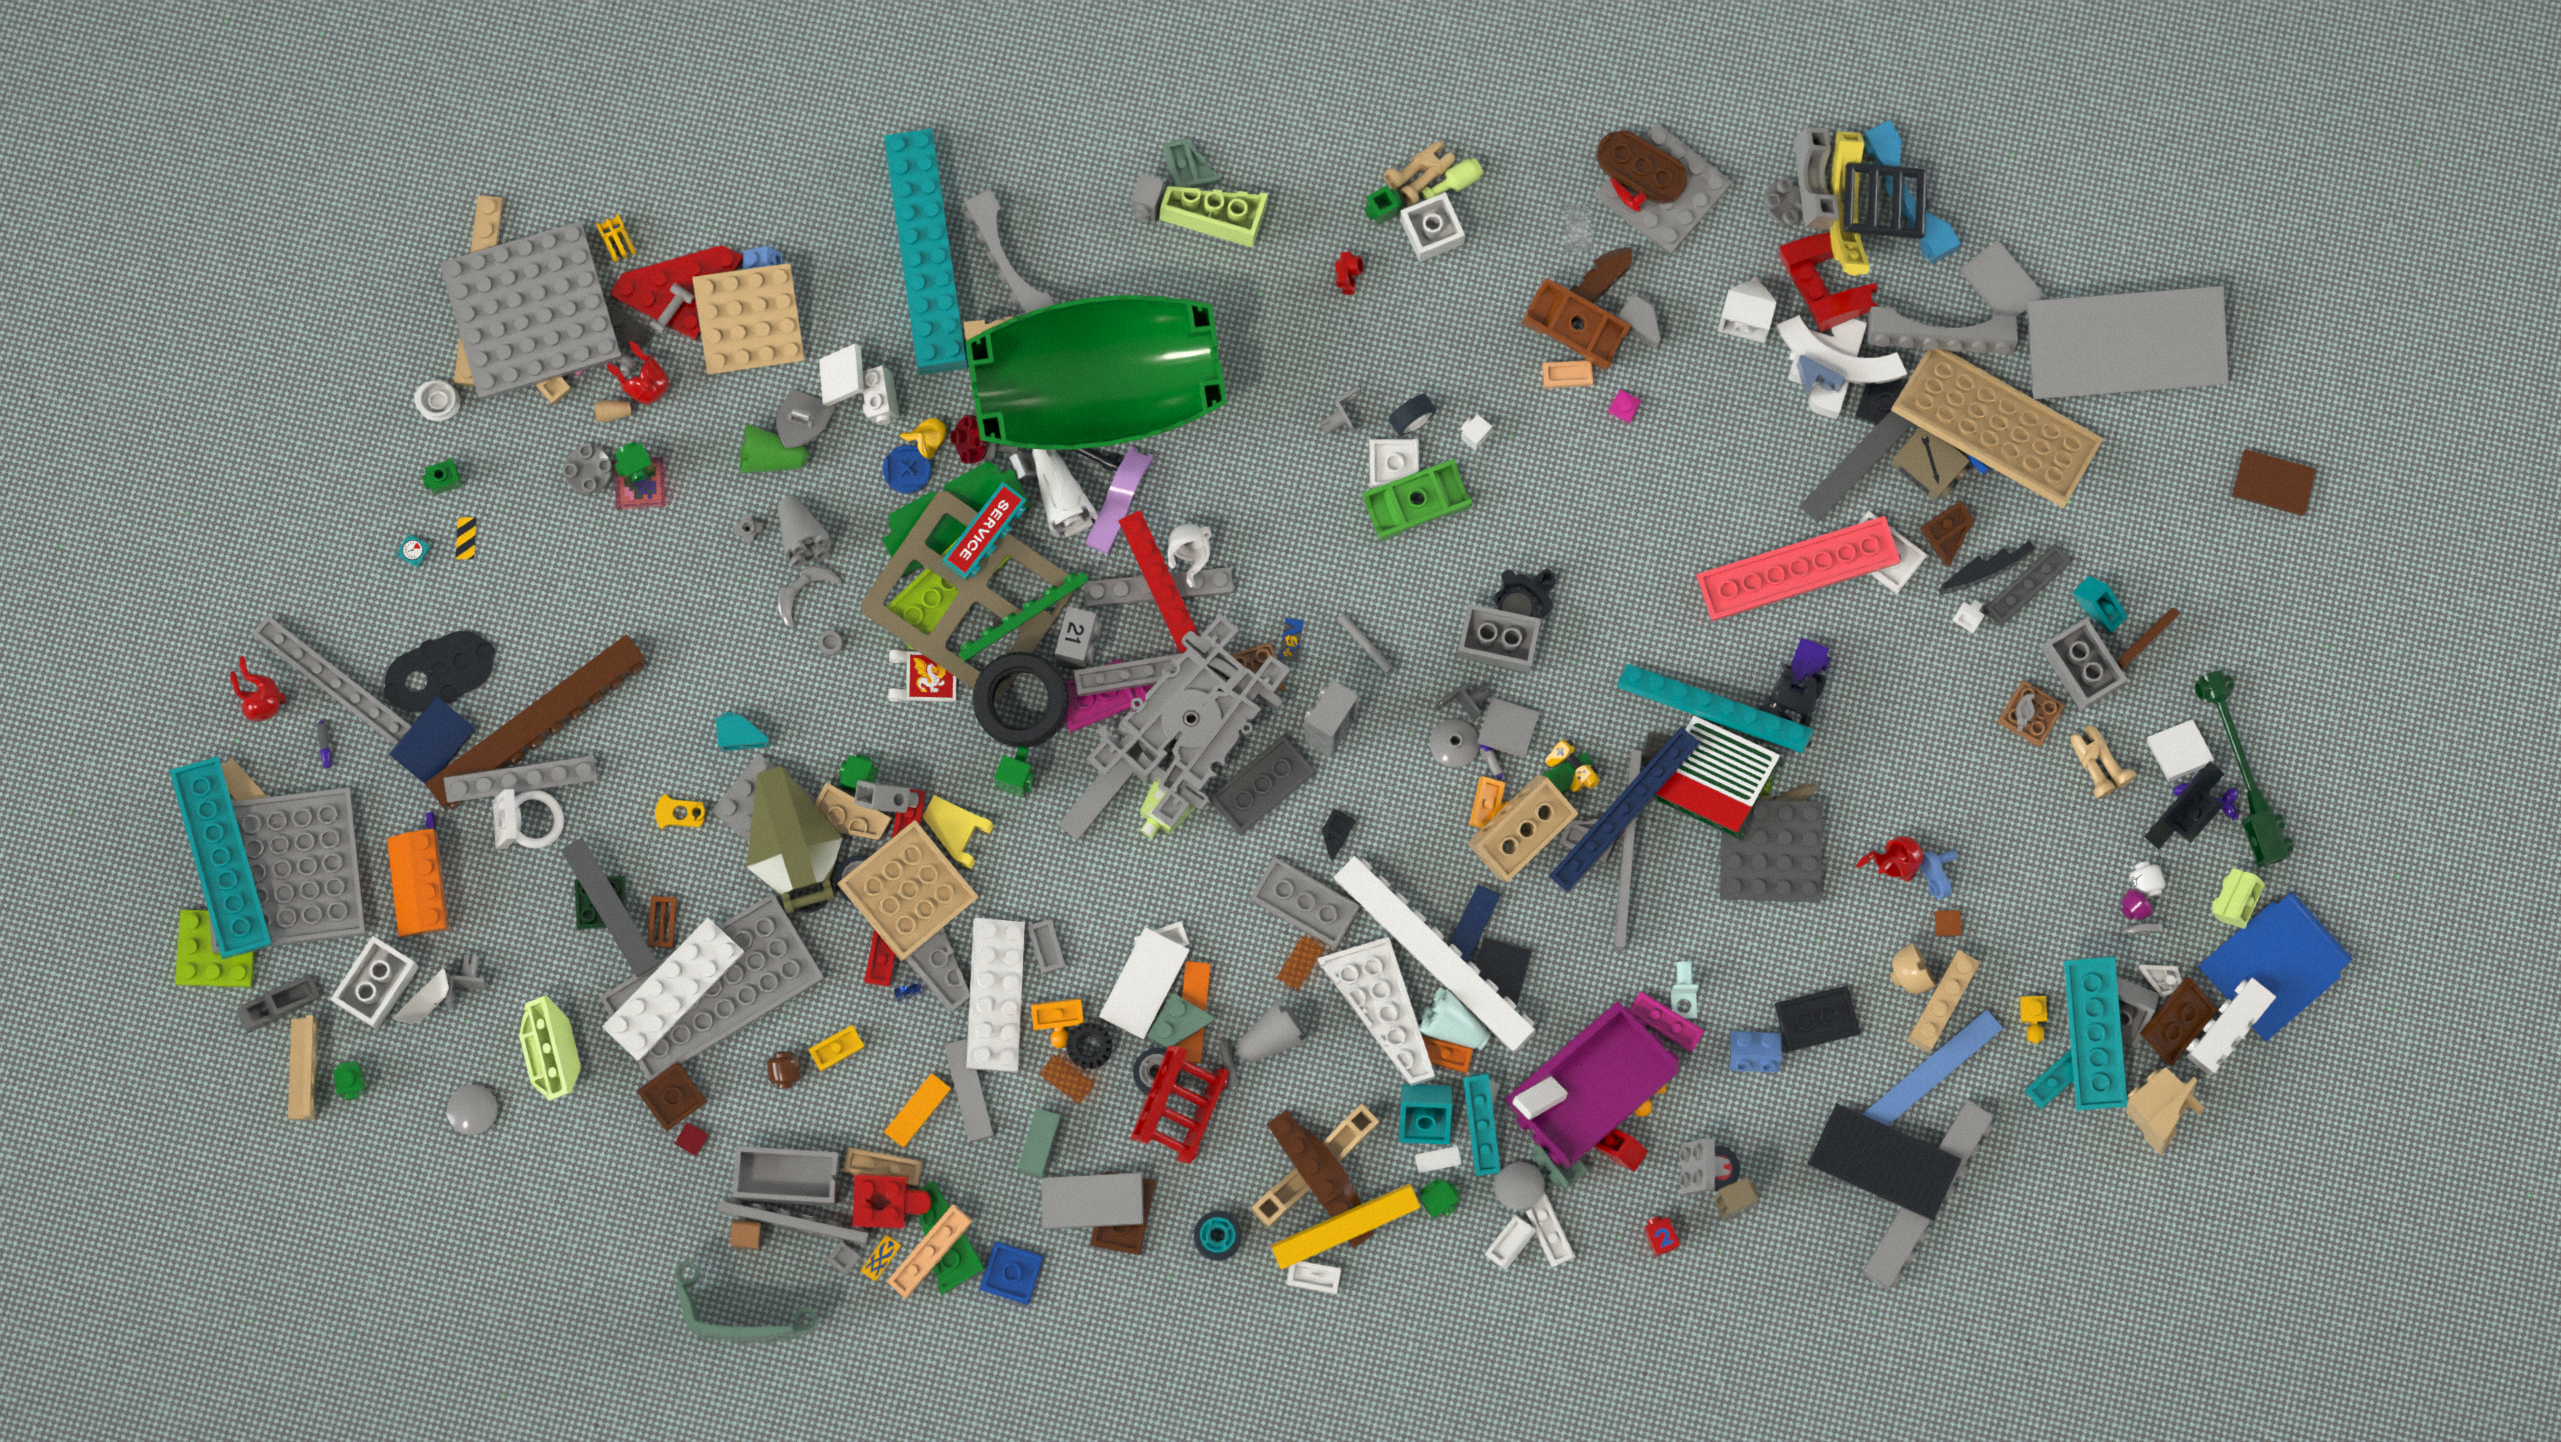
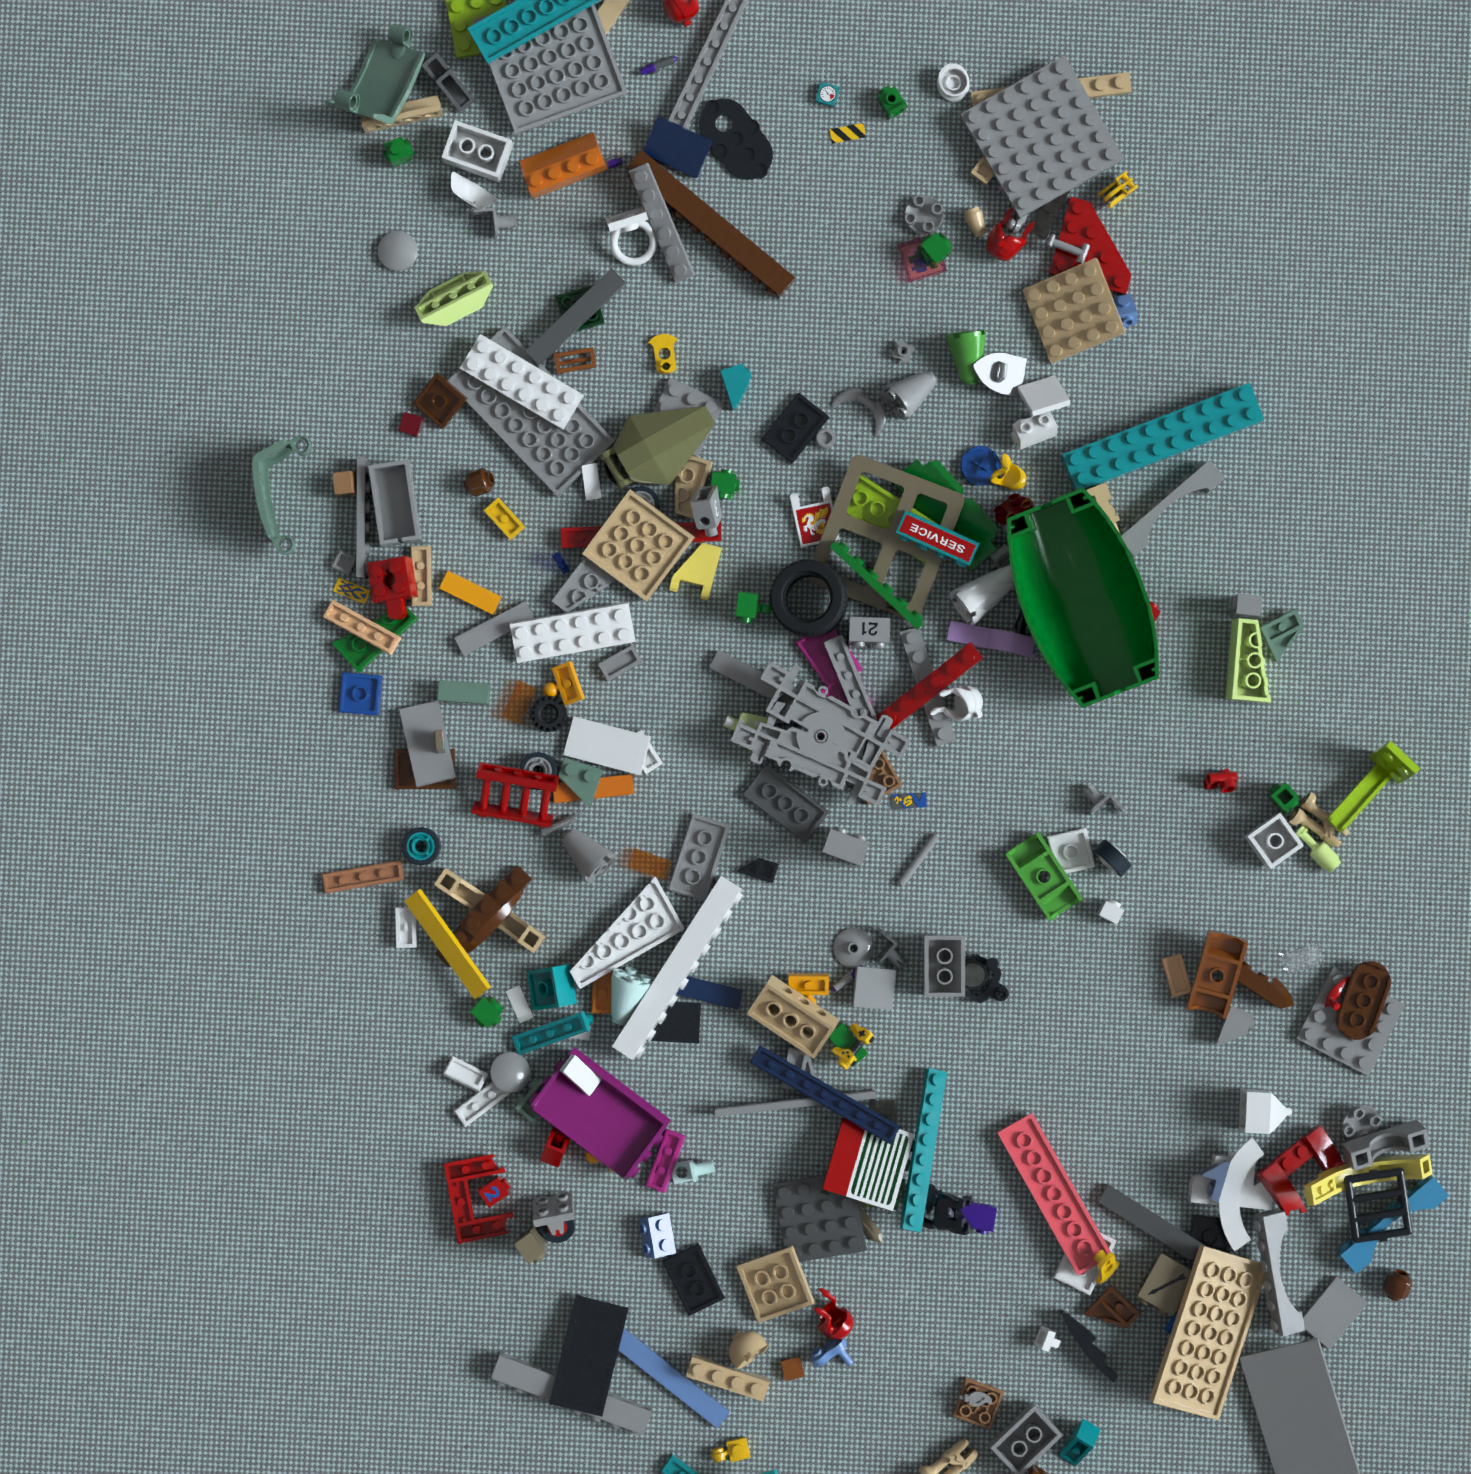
camera: 85 degrees right, 10 degrees up
(254, 1077) = (383, 78): none -> sand green panel
(809, 676) = (795, 428): none -> black tile
(816, 933) = (591, 481): none -> white sticker
(1093, 1181) = (439, 741): none -> dark tan tile
(1239, 1318) = (363, 876): none -> nougat tile
(1370, 76) = (1390, 763): none -> lime bracket
(1624, 406) = (1159, 1026): dark pink plate -> none
(1634, 1279) = (466, 1226): none -> red wedge
(1841, 919) = (775, 1284): none -> tan plate
(1896, 525) = (1106, 1266): none -> yellow piece
(1983, 201) = (1397, 1284): none -> reddish brown head
(2027, 585) = (1083, 1381): dark grey tile -> none

